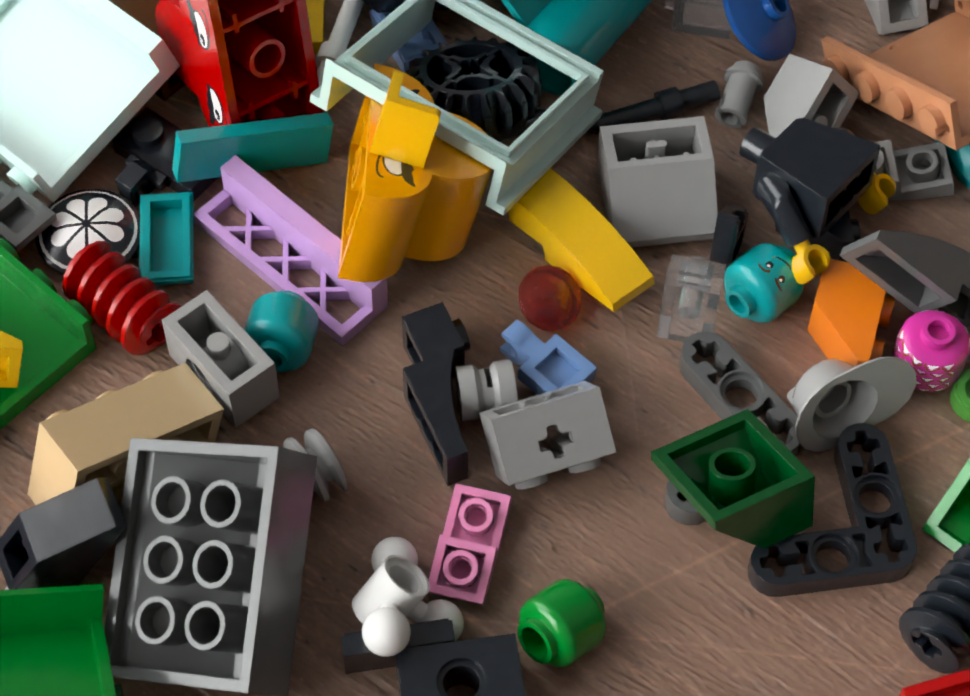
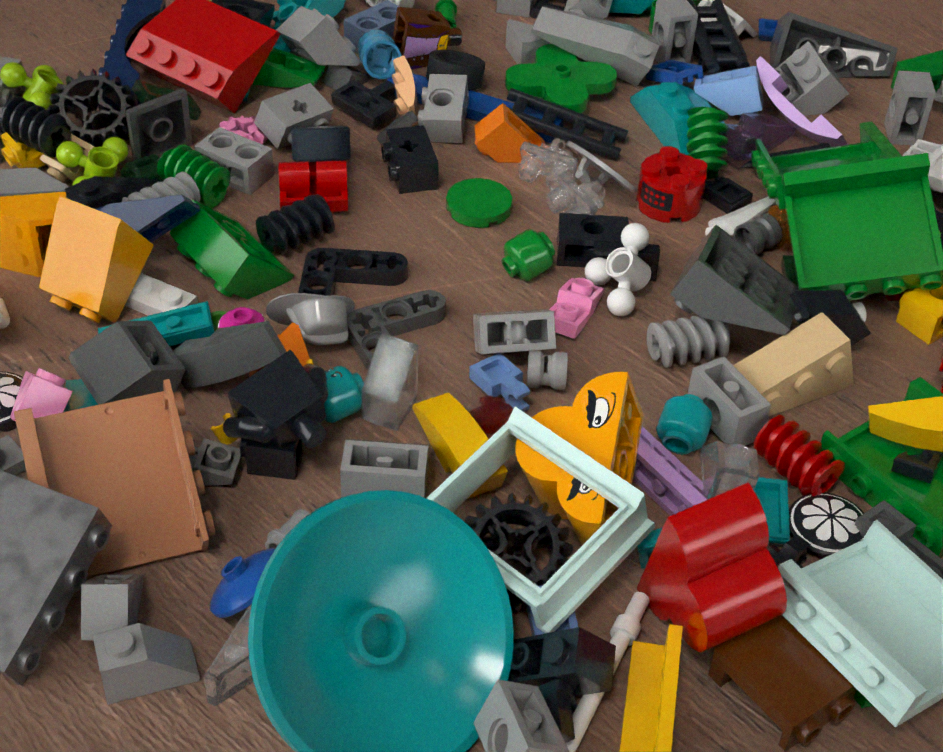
camera: 170 degrees left, 15 degrees down
(219, 252) = (727, 467): none -> clear slope
(404, 127) = (591, 417): yellow panel -> none
(435, 348) = (583, 364): black slope -> none
(728, 234) = (352, 419): black tile -> none
(741, 480) = (407, 271): dark green slope -> none
(807, 92) = (248, 494): light grey slope -> none

